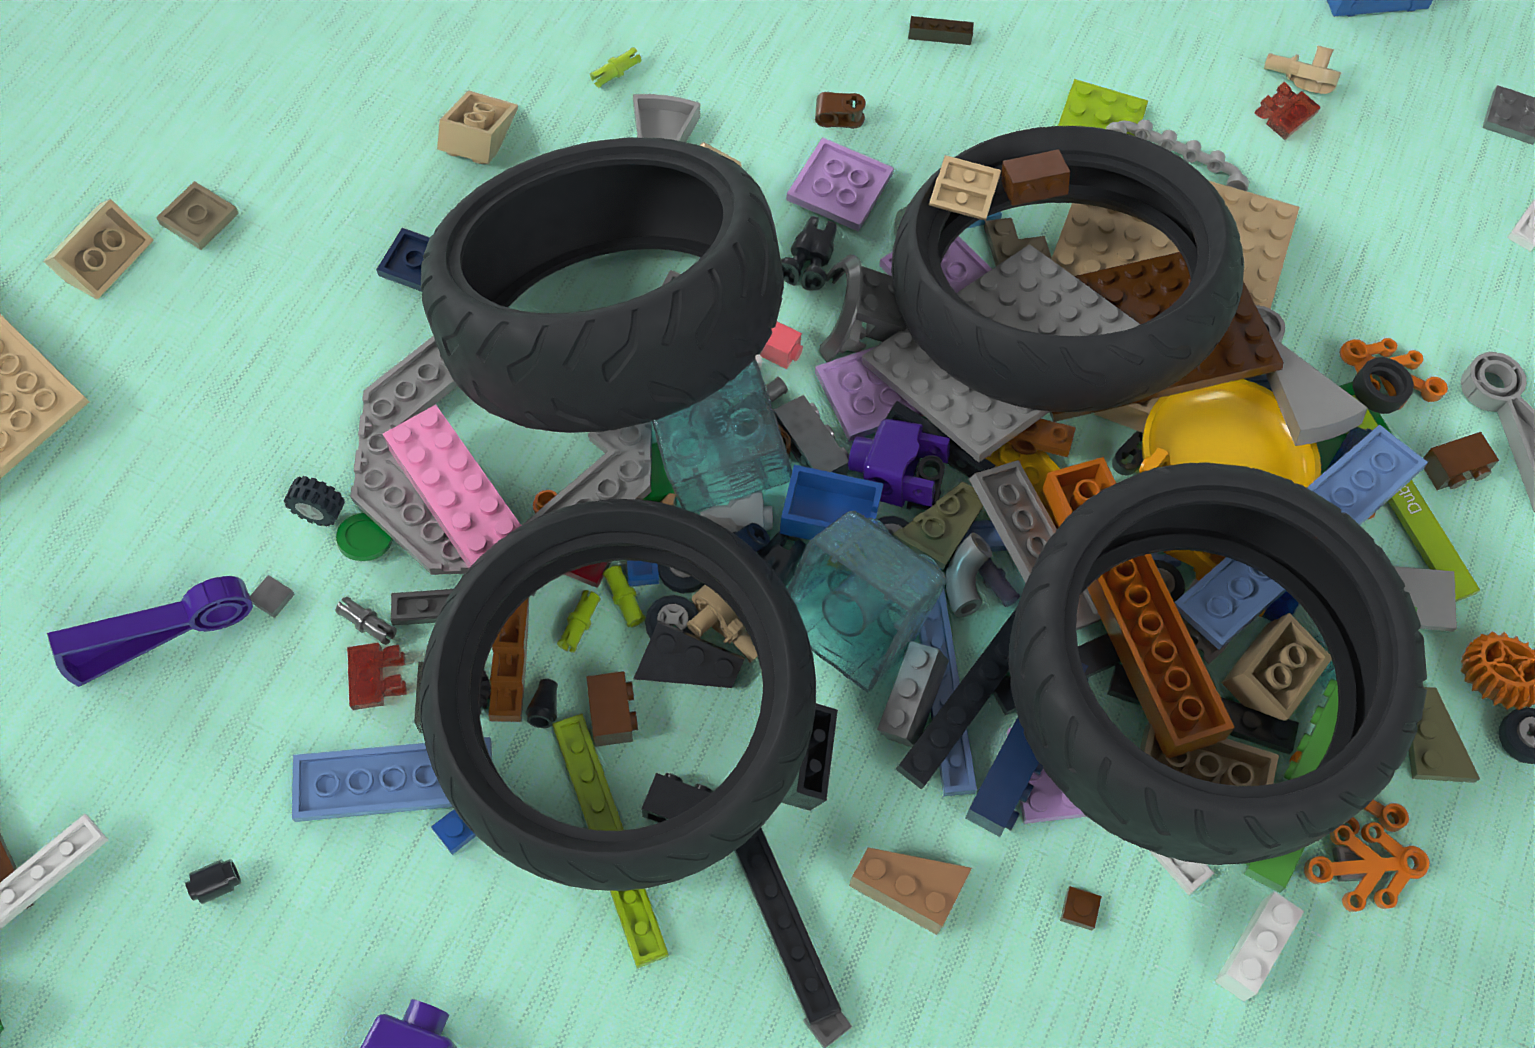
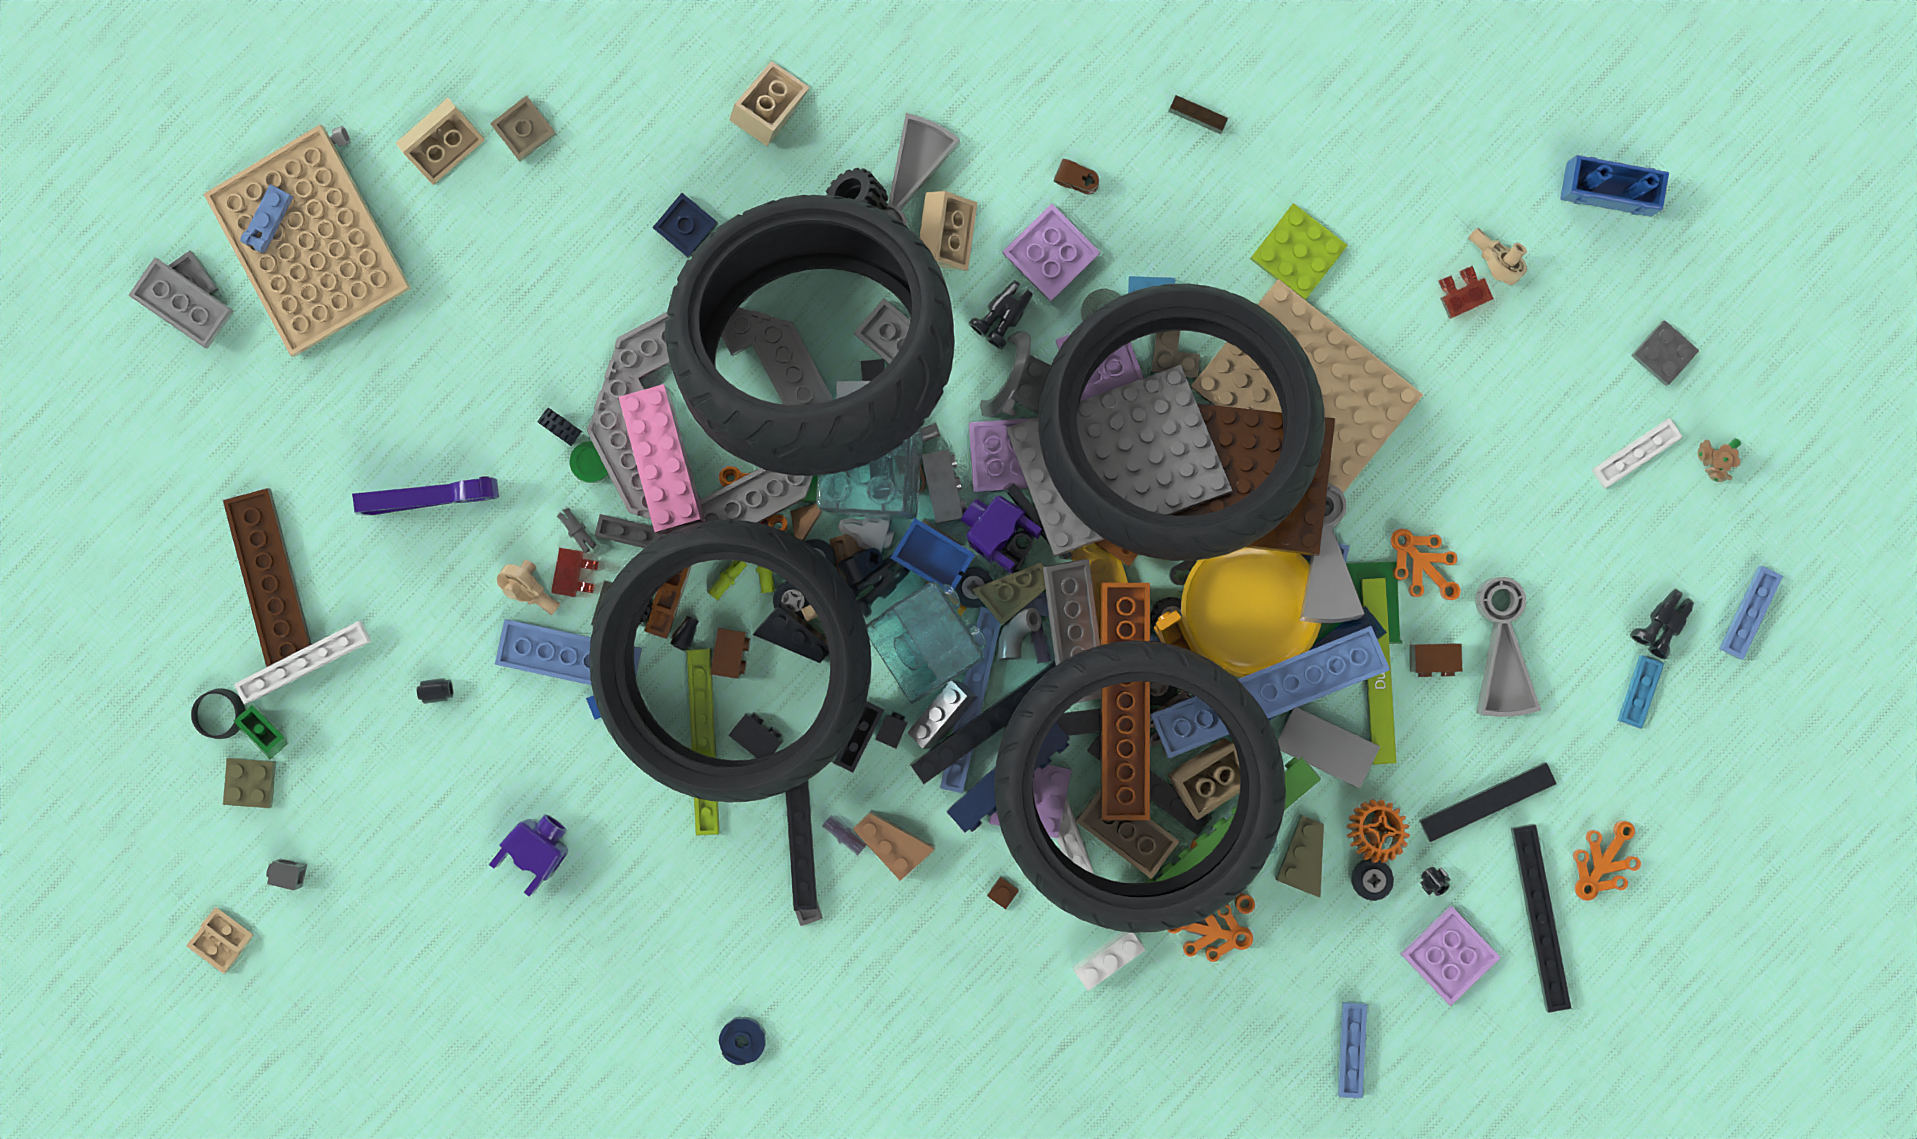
camera: 20 degrees right, 25 degrees up
(271, 596) = (514, 488): flat silver tile -> none
(312, 704) = (521, 585): none -> tan pin
(615, 67) = (902, 73): lime pin -> none
(783, 346) = (952, 396): coral brick -> none
(841, 898) = (844, 835): none -> pin
(854, 739) = (892, 729): none -> black brick
(965, 187) = (1121, 339): tan slope -> none
(1035, 177) = (1180, 348): reddish brown brick -> none
(1191, 150) = (1343, 295): light grey bar -> none
(1391, 371) = (1423, 580): black tyre -> none

